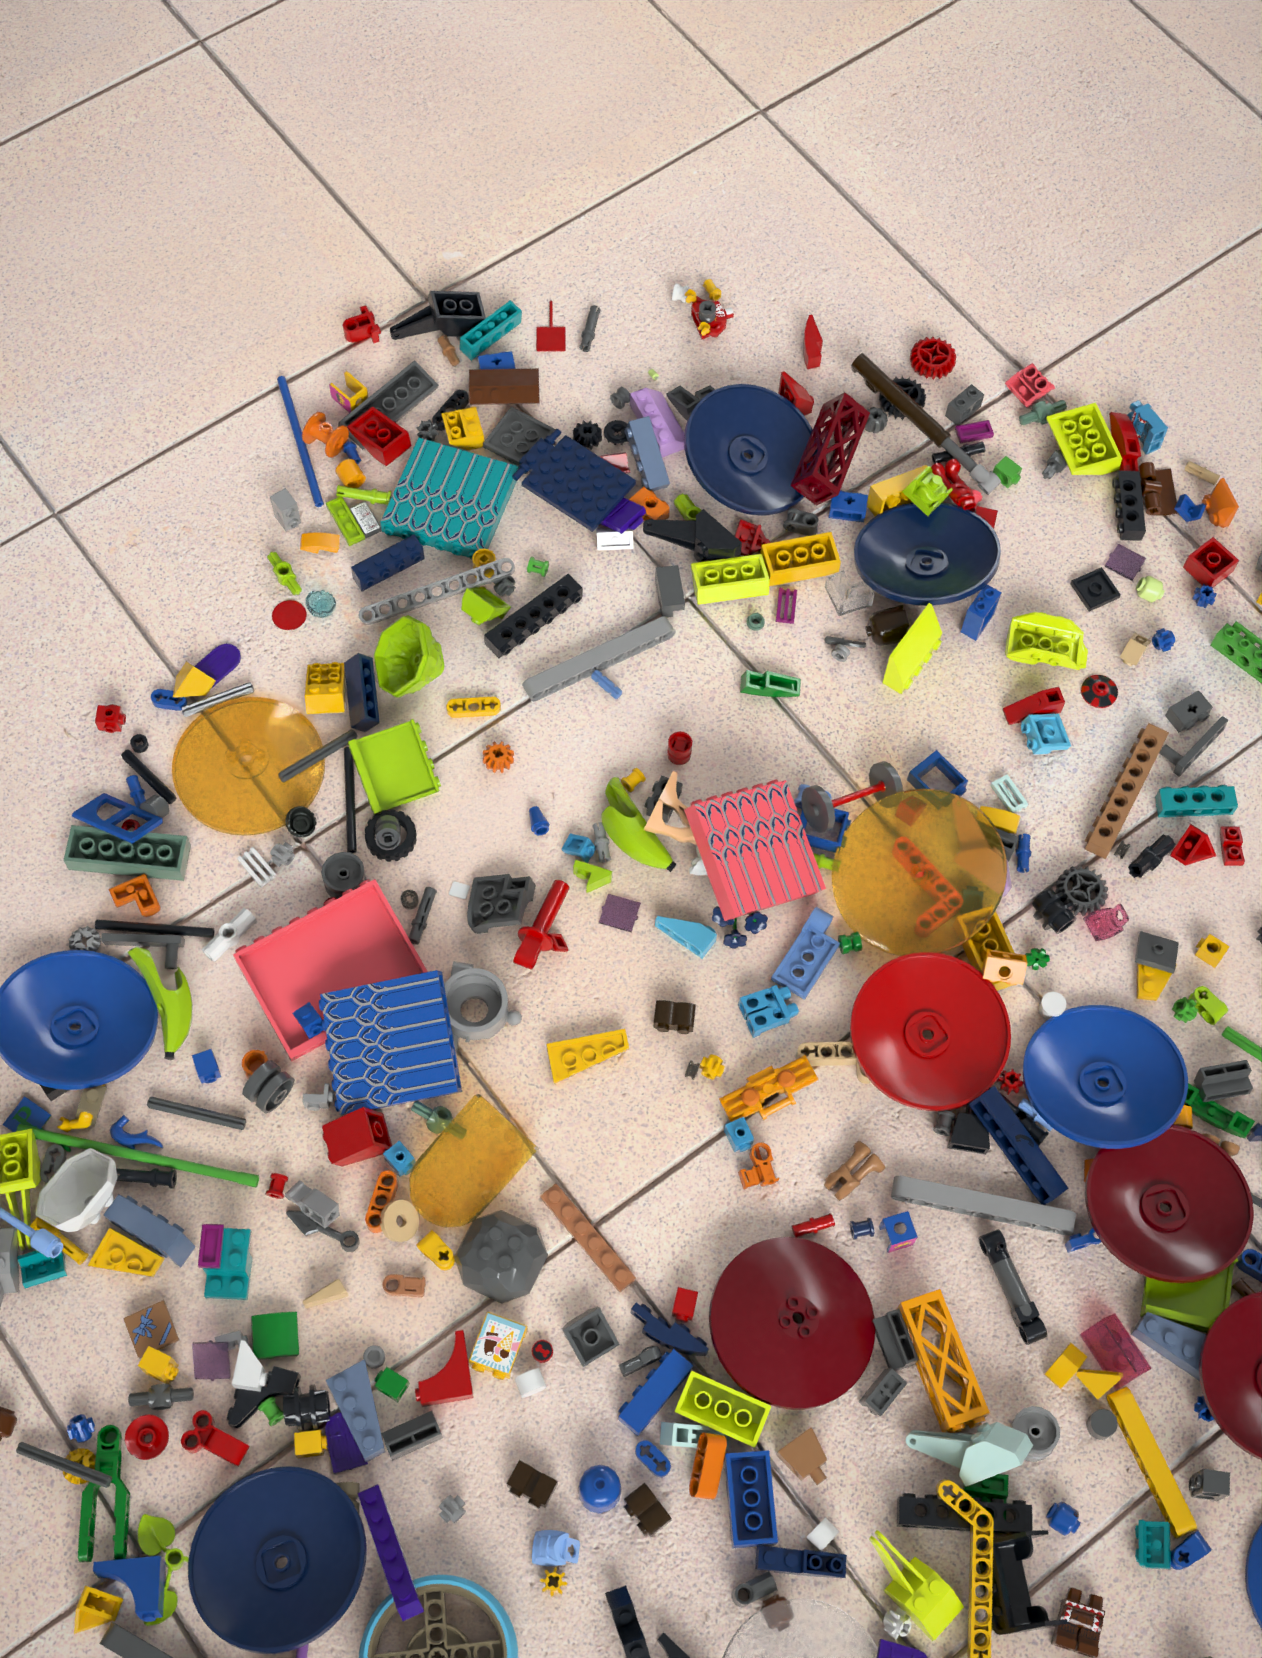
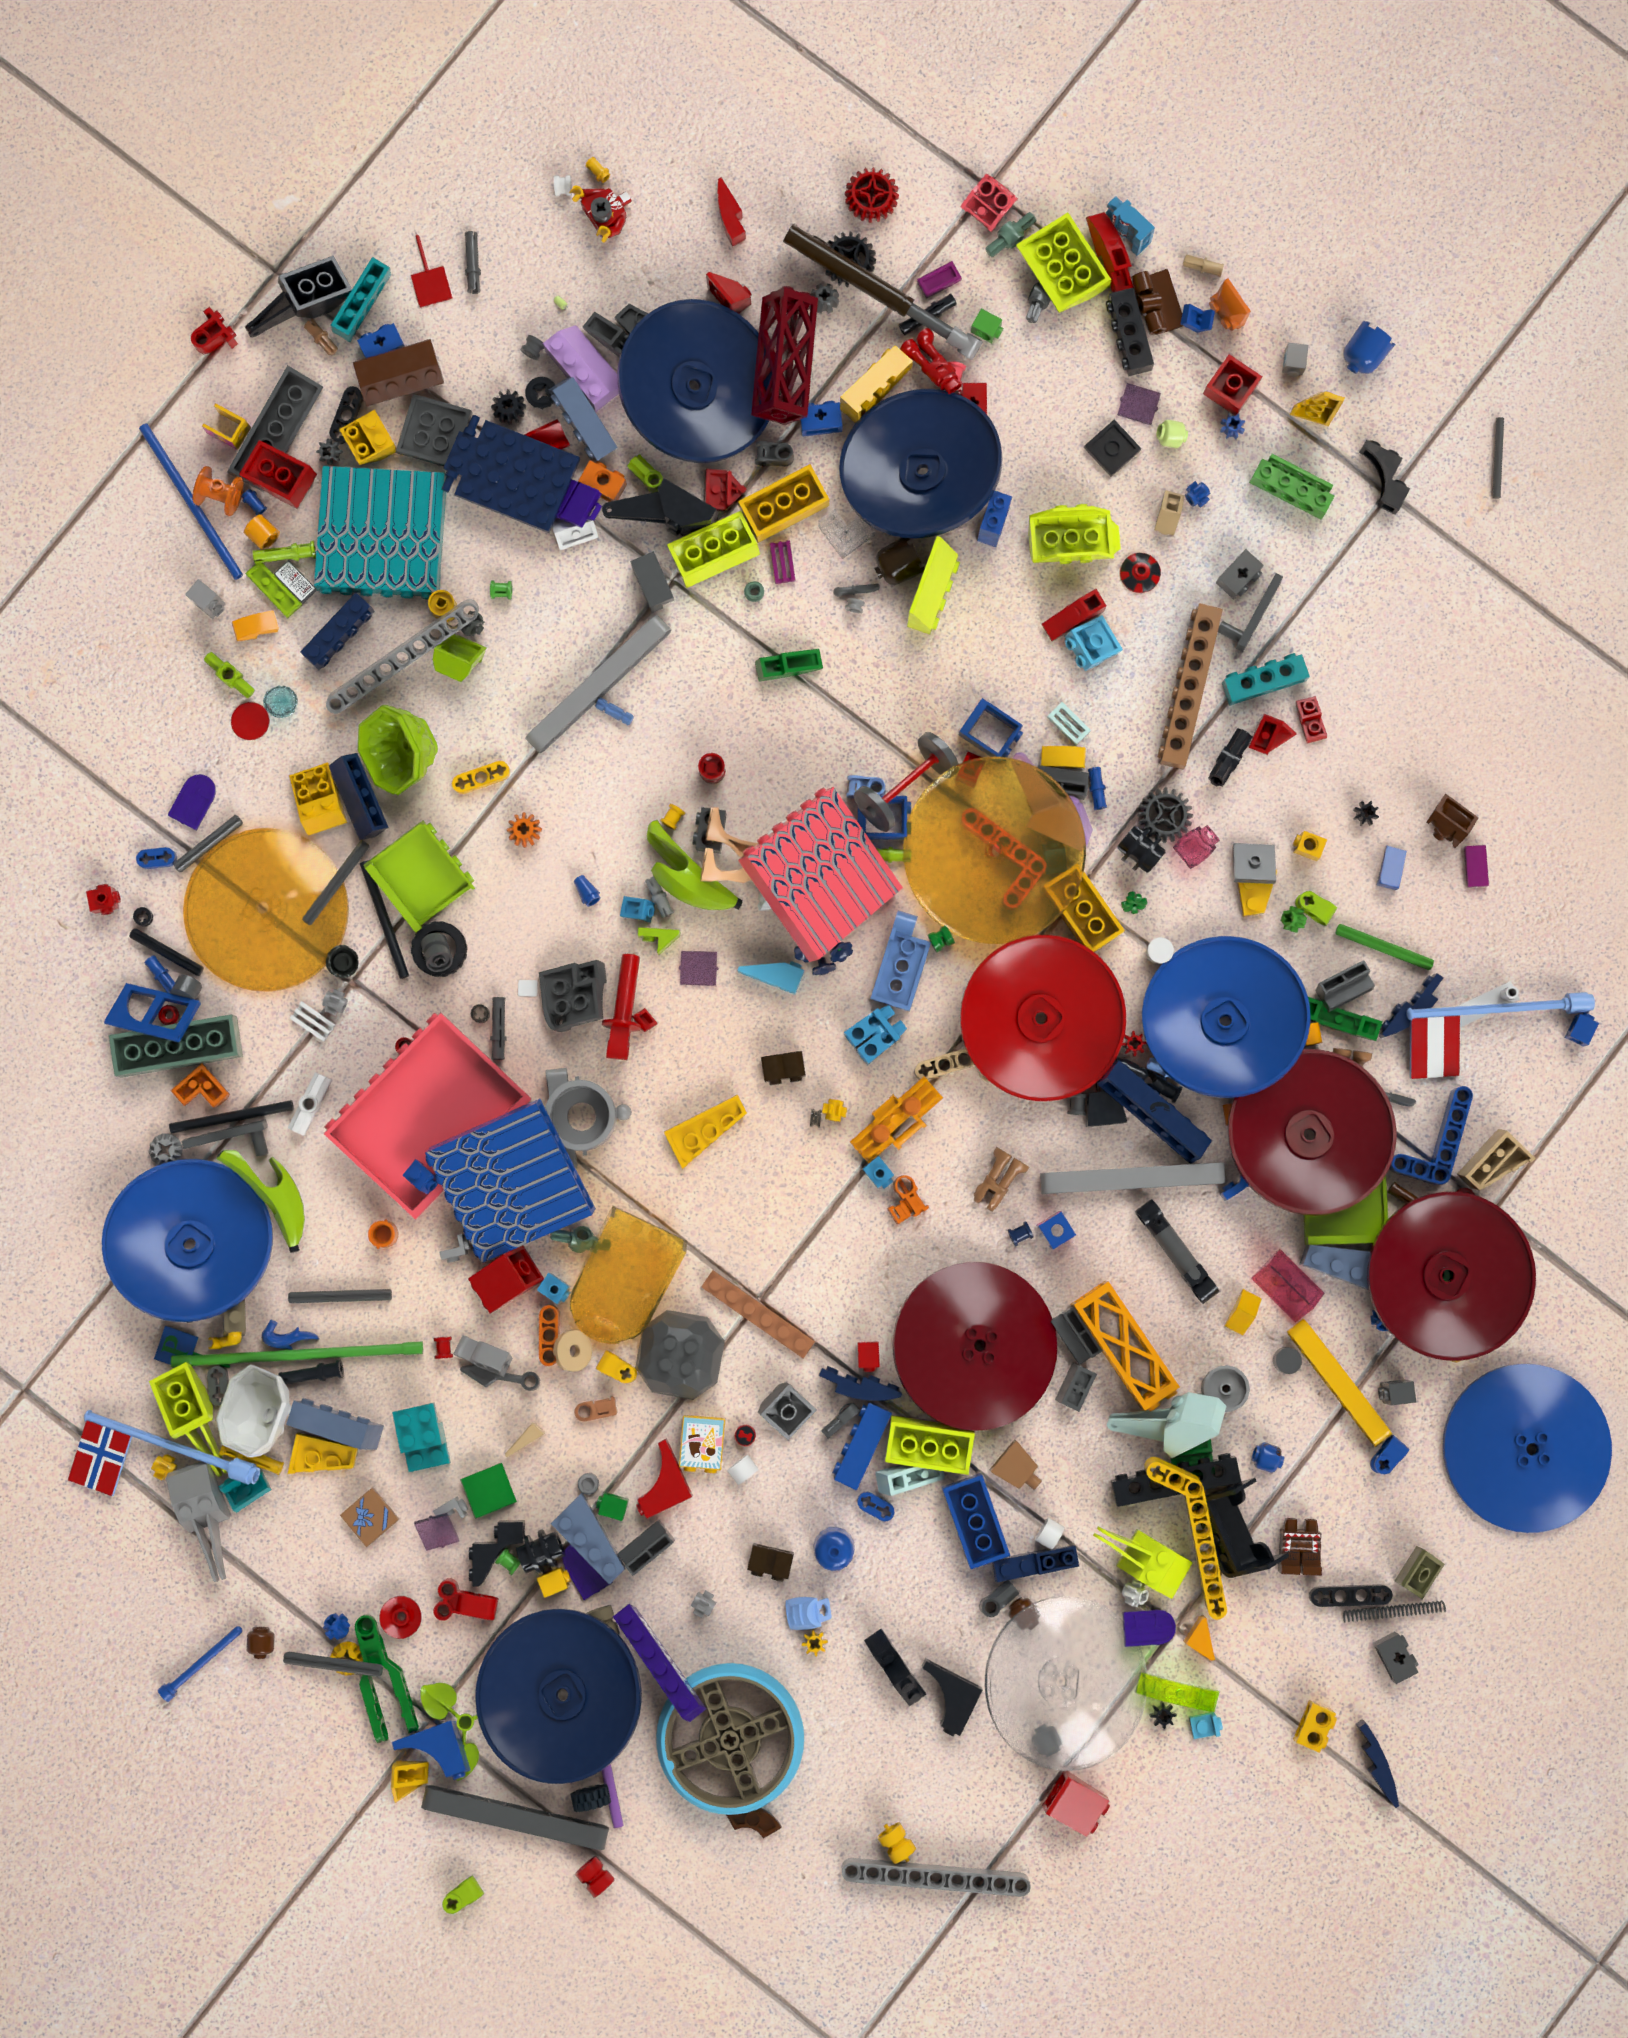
camera: 10 degrees left, 20 degrees up
(158, 1365) = (389, 1551): yellow brick -> none
(161, 1396) = (400, 1576): dark grey axle -> none
(192, 682) = (173, 832): yellow slope -> none
(206, 1066) = (334, 1248): blue brick -> none
(211, 1246) = (401, 1431): magenta tile -> none
(248, 1370) = (476, 1534): white slope -> none
(268, 1086) = (403, 1254): dark grey wheel -> none
(341, 873) = (394, 1006): dark grey wheel -> none
(537, 607) = (538, 607): black brick -> none
(647, 1510) = (882, 1555): dark brown brick -> none
(707, 1466) = (928, 1502): orange beam -> none
(813, 1225) = (972, 1243): red pin -> none
(927, 491) = (903, 384): lime brick -> none
(964, 405) = (921, 250): dark grey brick -> none
(996, 959) = (1103, 932): light orange brick -> none
(1098, 1381) = (1276, 1321): yellow slope -> none
(1122, 849) = (1198, 756): clear smoke bush -> none
(1153, 1544) = (1354, 1458): teal bracket -> none

